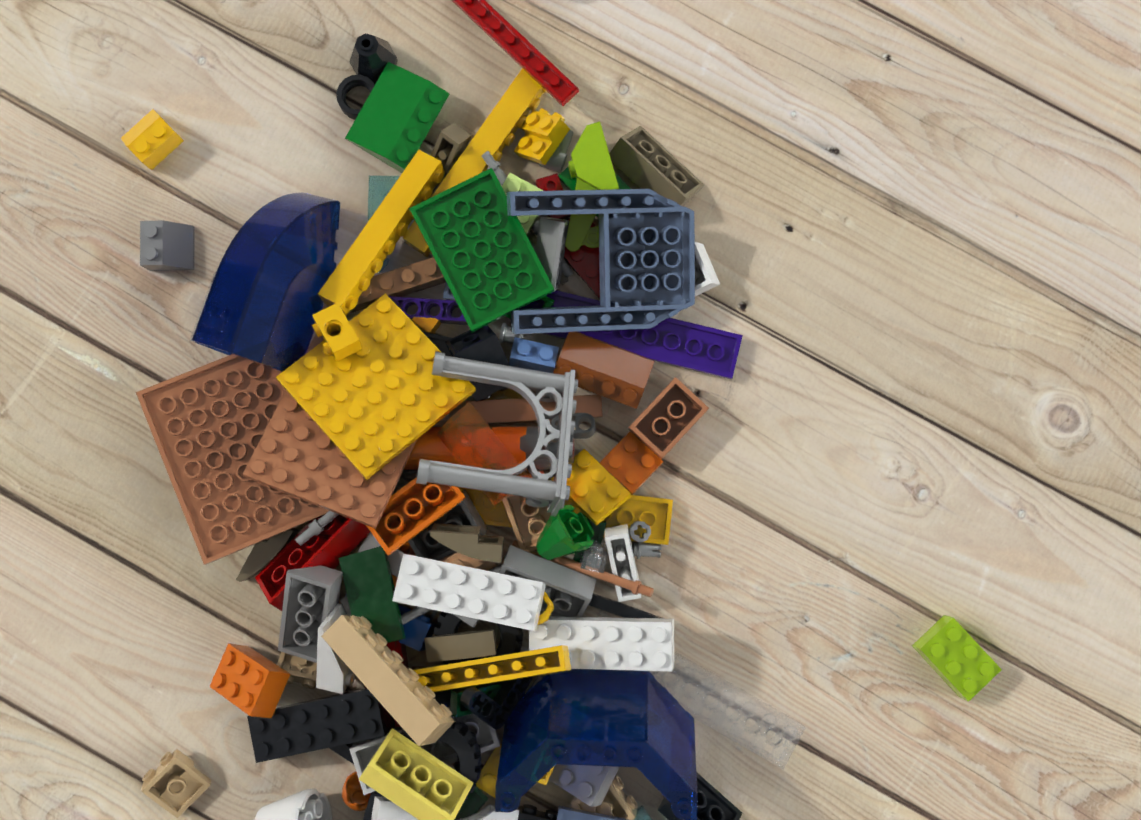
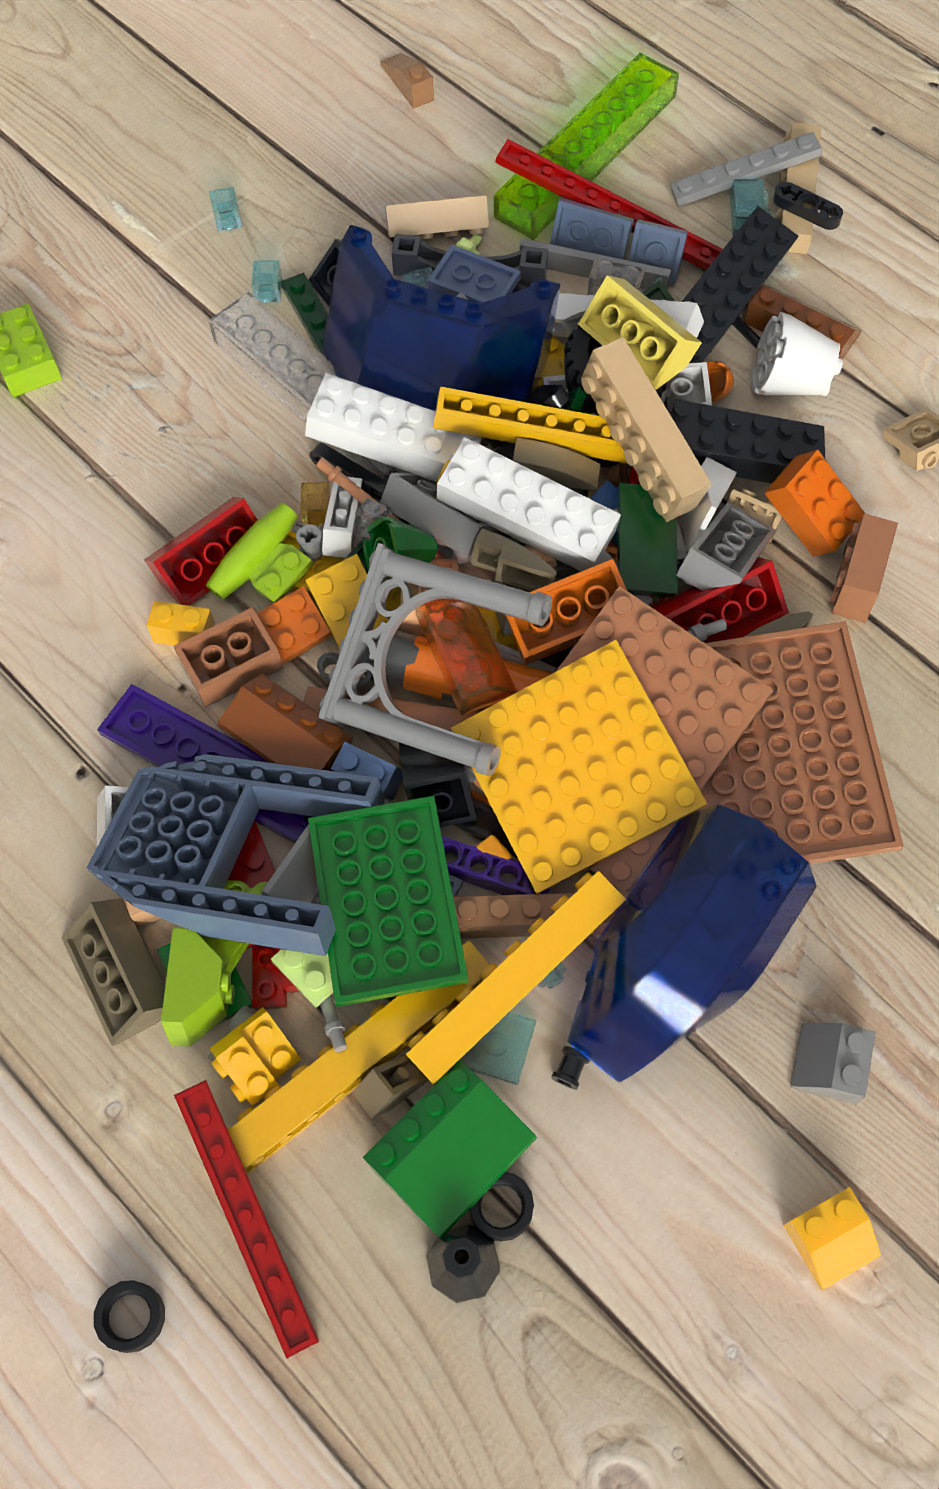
camera: 160 degrees left, 20 degrees down
(202, 634) = (863, 567): none -> nougat brick
(332, 320) = (602, 818): yellow brick -> none
(337, 191) = (570, 1068): none -> black bush
(652, 574) = (314, 502): none -> clear yellow brick
(674, 510) = (263, 559): none -> lime plate
(715, 436) = (176, 623): none -> yellow brick
(720, 508) = (193, 556): none -> red slope
(726, 774) = (307, 307): none -> dark green plate
(775, 794) = (267, 280): none -> clear light blue brick

